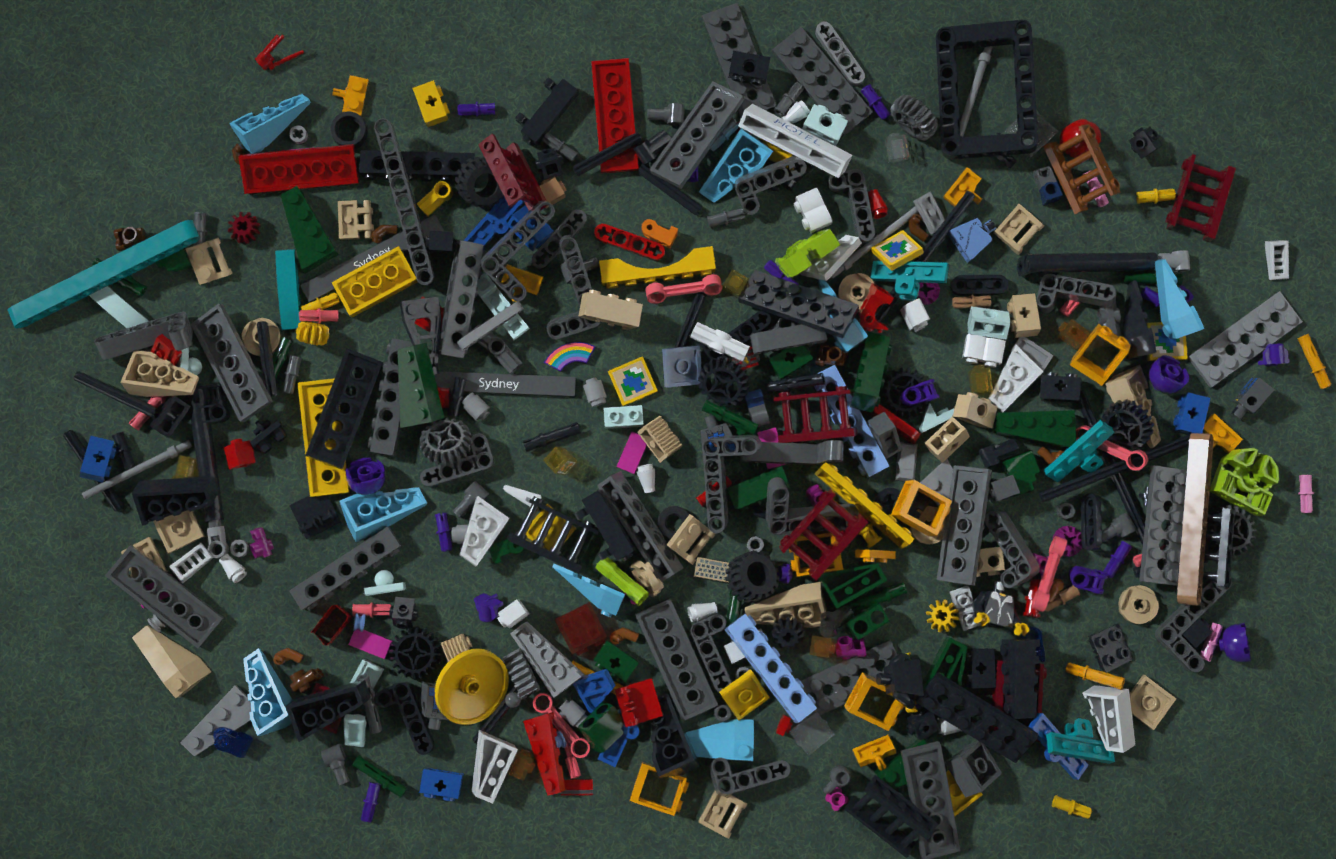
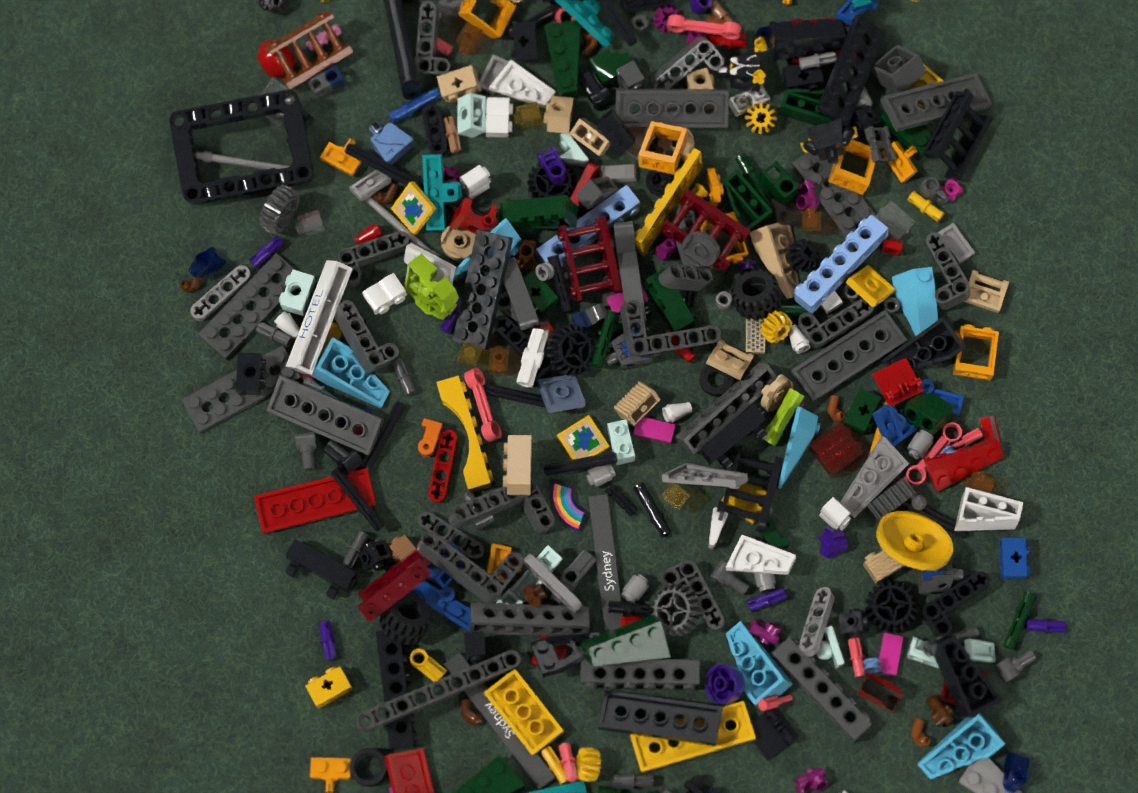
camera: 90 degrees left, 10 degrees down
(340, 519) = (772, 702): none -> coral axle
(349, 220) = (462, 751): tan plate -> none
(409, 579) = (819, 621): none -> light grey beam
(410, 526) = (767, 633): none -> magenta plate
(482, 307) = (534, 594): none -> reddish brown plate
(567, 408) = (621, 499): none -> black axle
(571, 490) = (704, 475): none -> light grey wing
(607, 371) = (581, 463): none -> black axle
(715, 590) = (776, 327): none -> yellow gear
(726, 311) = (498, 361): none -> clear orange brick
(778, 792) = (956, 243): none -> light grey tile
(800, 524) = (700, 249): none -> dark grey tile
(808, 368) = (541, 273): none -> light grey bush
(822, 768) = (925, 206): none -> yellow pin
(853, 28) = (193, 284): none -> reddish brown arm
(873, 45) = (206, 263): none -> clear blue piece
(893, 738) = (883, 144): none -> dark grey piece
(946, 463) = (616, 131): none -> black brick
(994, 685) = (817, 60): none -> light grey axle
(1007, 264) = (408, 108): none -> blue pin
(1013, 224) = (371, 107): tan plate -> none

